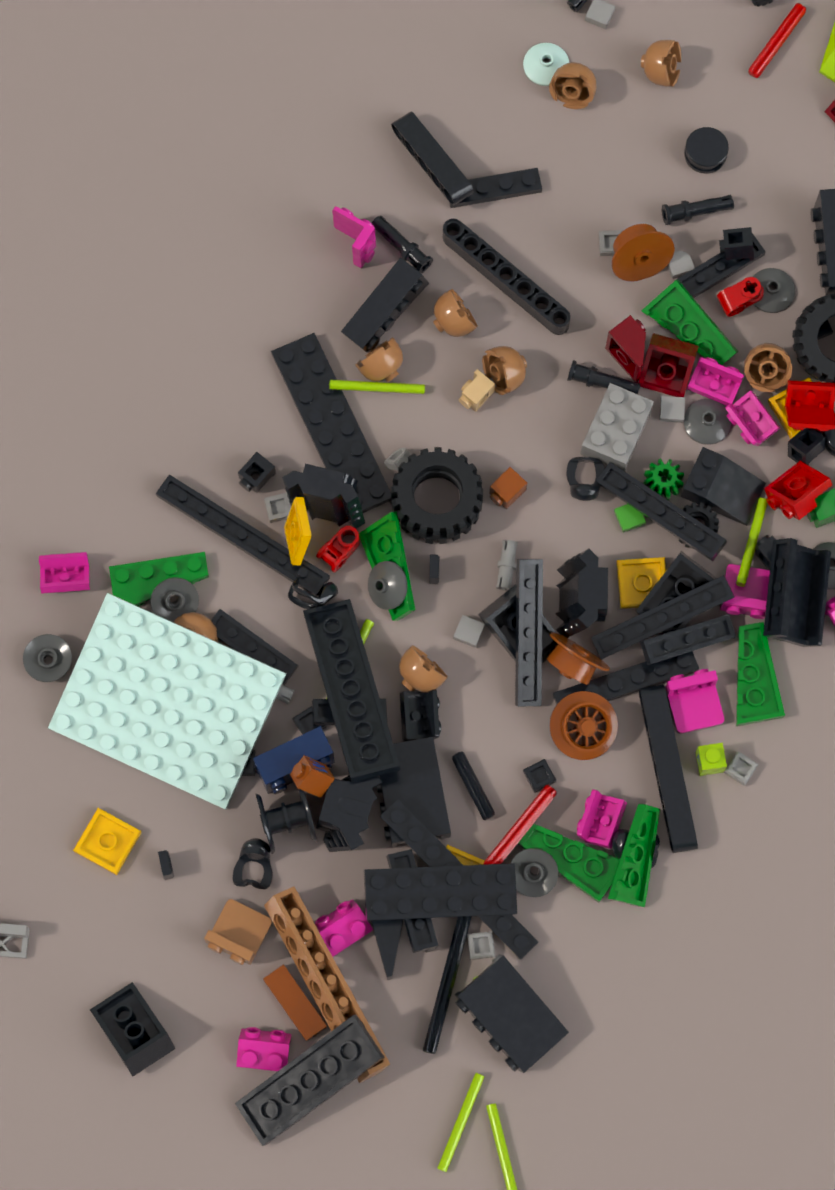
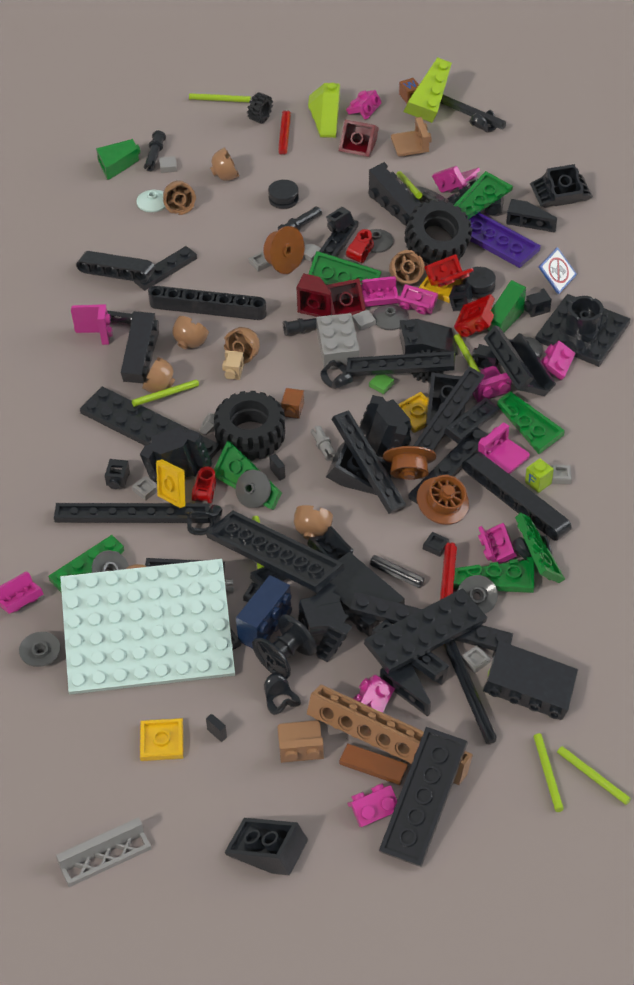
camera: 30 degrees left, 25 degrees down
(312, 776) = (286, 603): dark orange brick -> none
(469, 631) = (326, 490): light grey tile -> none
(673, 478) = (387, 347): green gear -> none

